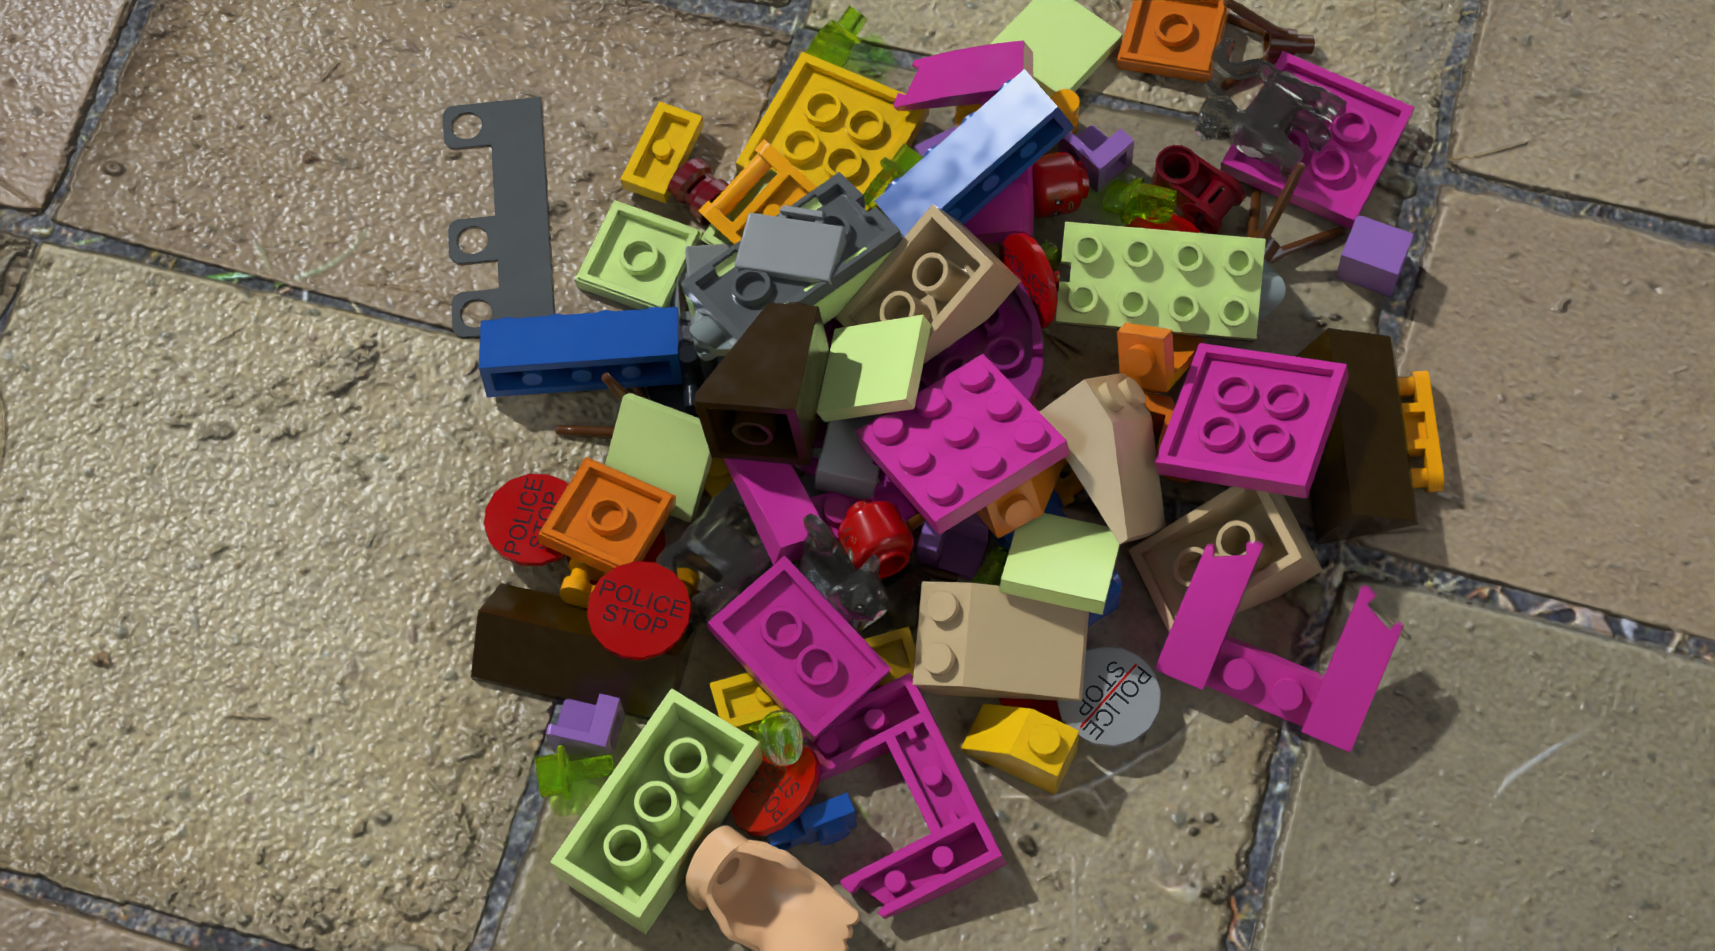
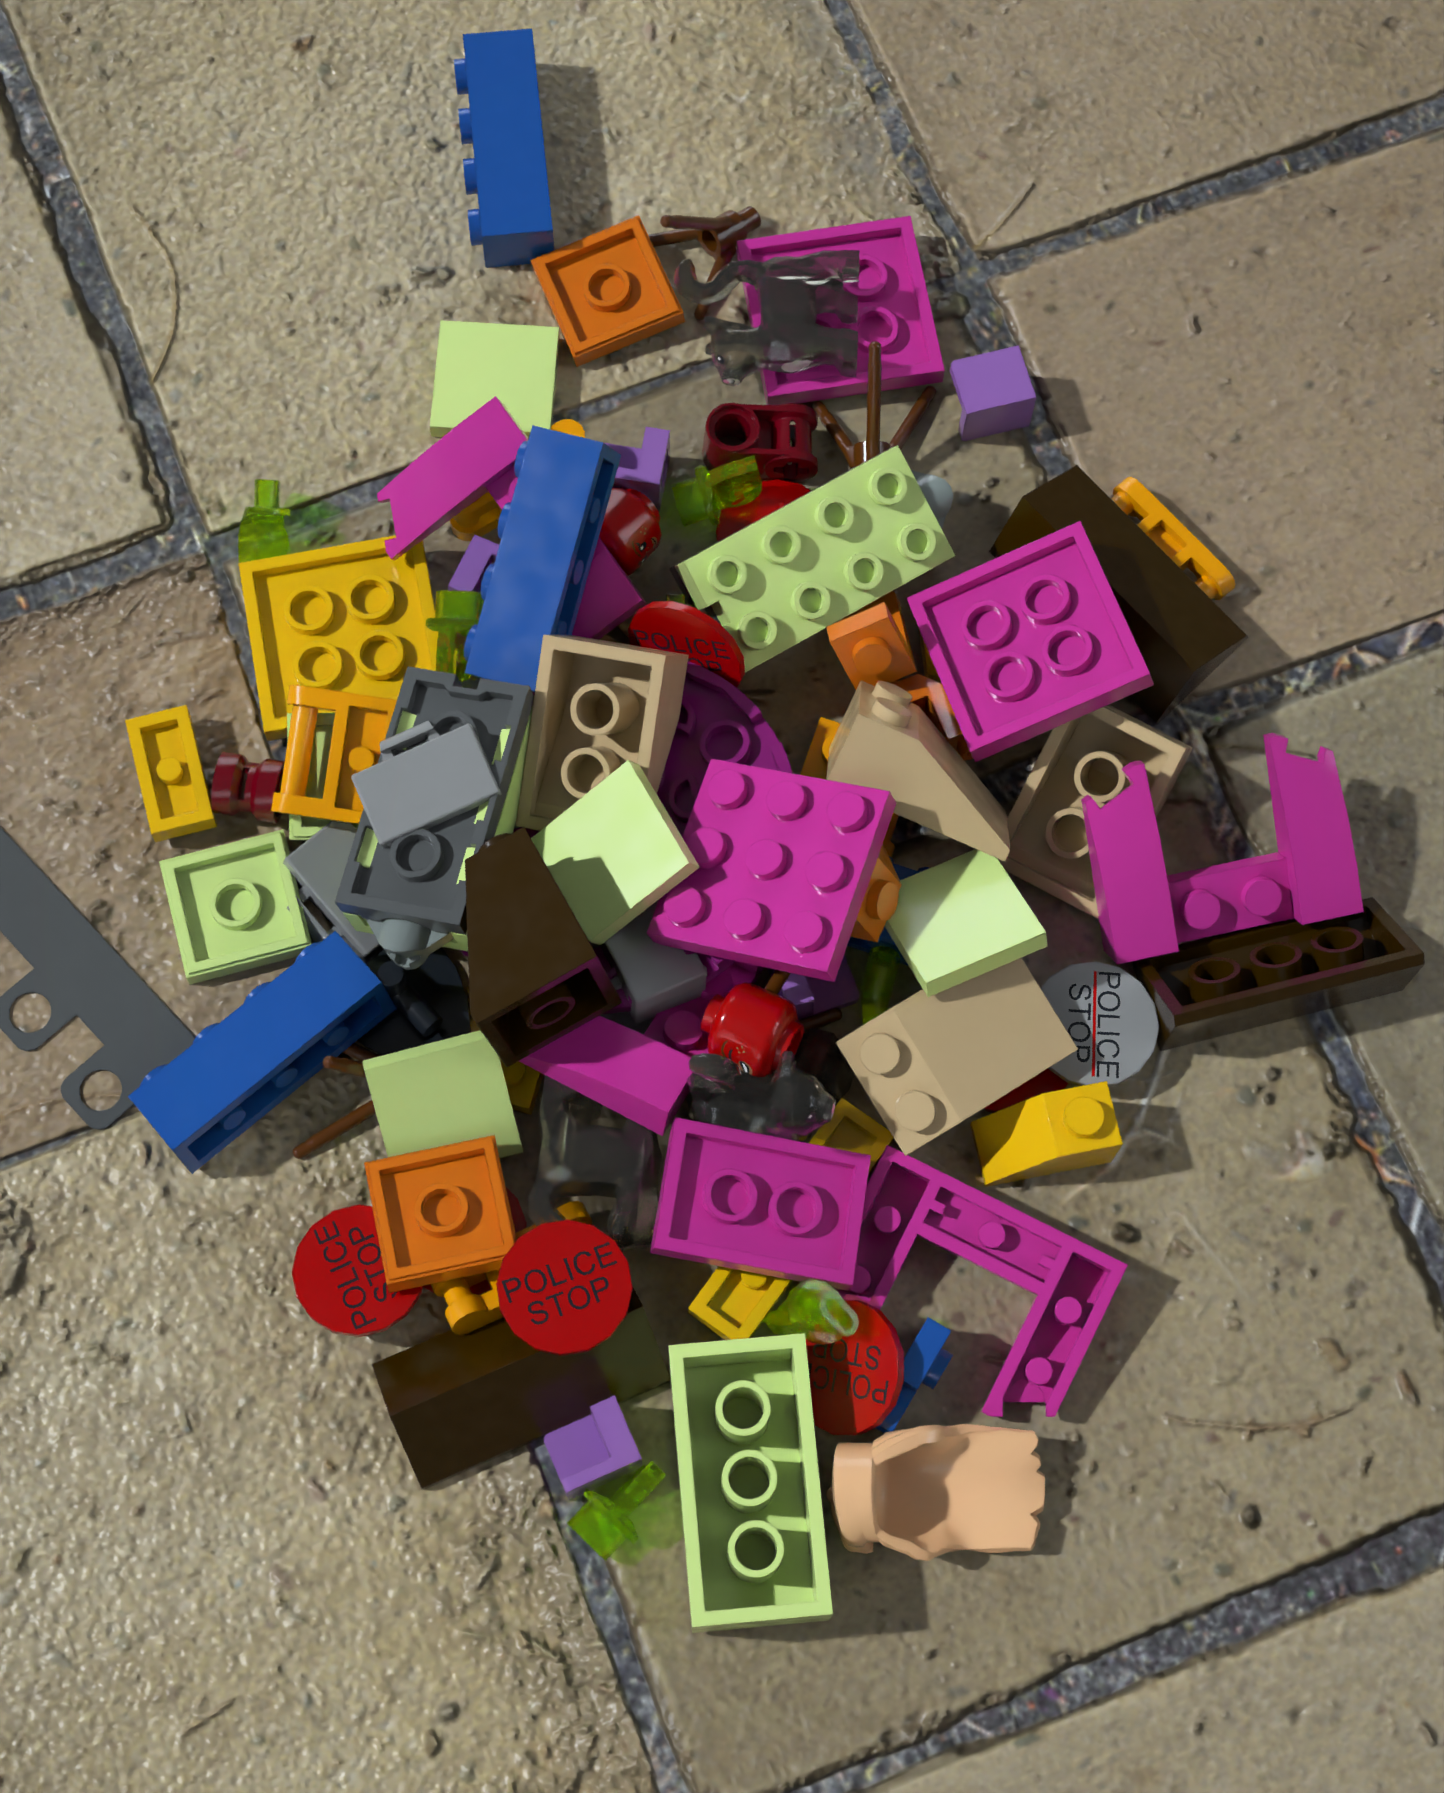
camera: 45 degrees left, 5 degrees up
(1257, 752) = (1276, 973): none -> dark brown slope

